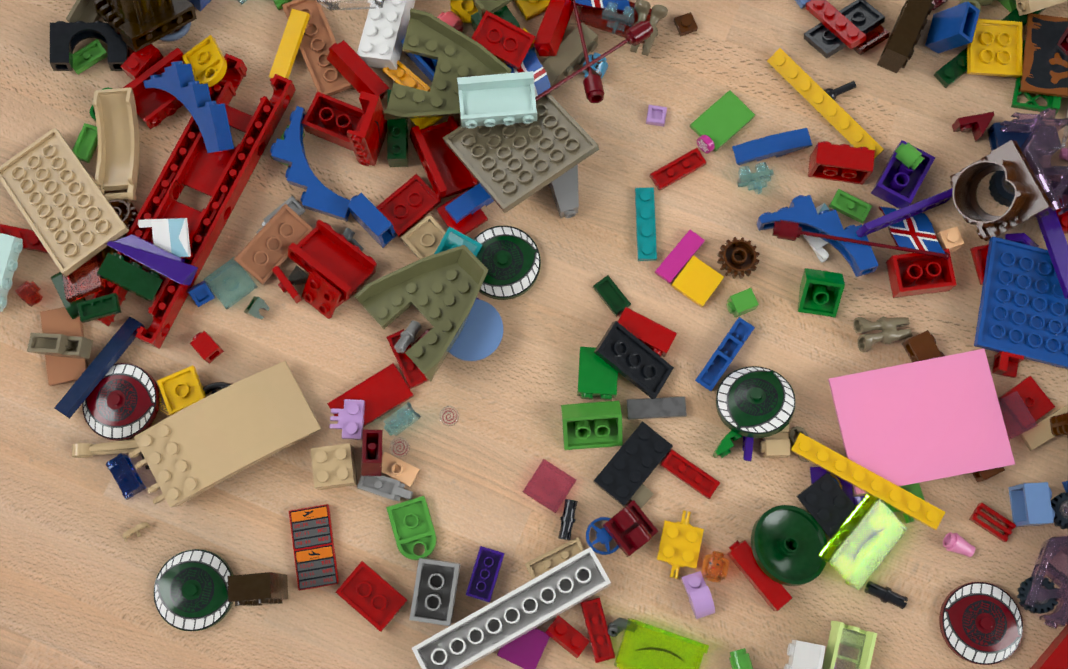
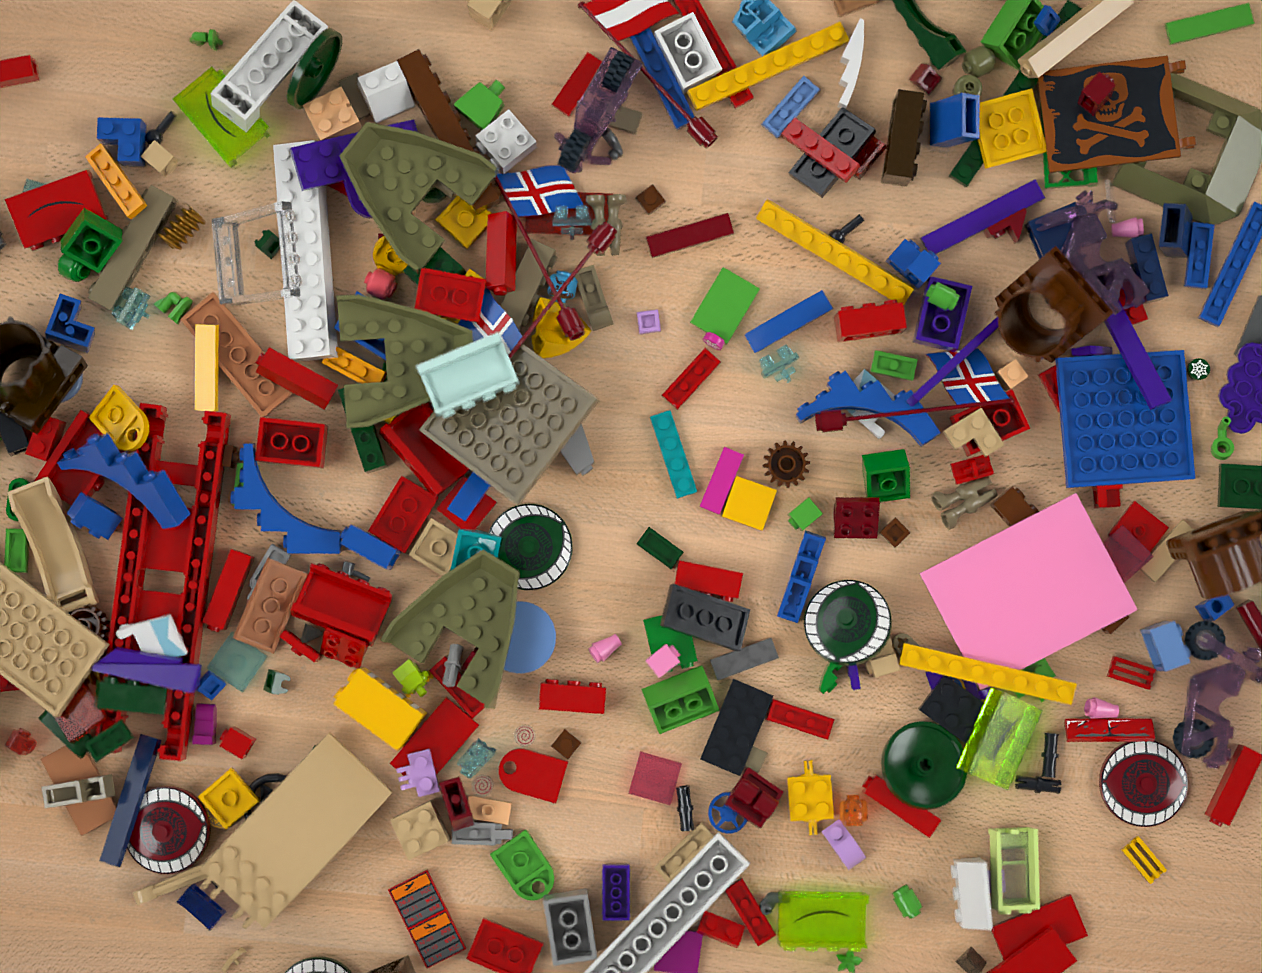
camera: 15 degrees left, 10 degrees up
(157, 130) = (94, 516): none -> blue brick
(185, 324) = (205, 724): none -> magenta leg
(243, 222) = (228, 590): none -> red brick
(282, 119) = (230, 456): none -> reddish brown plate
(334, 352) = (379, 707): none -> yellow brick
(370, 338) = (412, 678): none -> lime piece
(373, 130) = (339, 450): red panel -> none
(447, 451) = (535, 774): none -> red tile
(482, 433) = (566, 744): none -> reddish brown plate
(500, 394) = (572, 697): none -> red brick
(537, 363) = (604, 648): none -> bright pink cone
(575, 99) = (549, 338): none -> yellow brick
(587, 382) = (663, 660): none -> bright pink brick
(617, 83) = (593, 298): none -> dark tan plate
(710, 59) = (690, 235): none -> dark red tile
(786, 317) = (856, 517): none -> dark red plate
(815, 340) = (895, 532): none -> reddish brown plate
(888, 129) = (912, 263): none -> blue brick
(896, 306) = (971, 469): none -> red hips
(903, 572) = (1050, 755): none -> black pin
(911, 270) = (975, 427): none -> tan plate
(950, 113) = (983, 217): none -> dark purple tile
(962, 566) = (1109, 730): none -> red tile

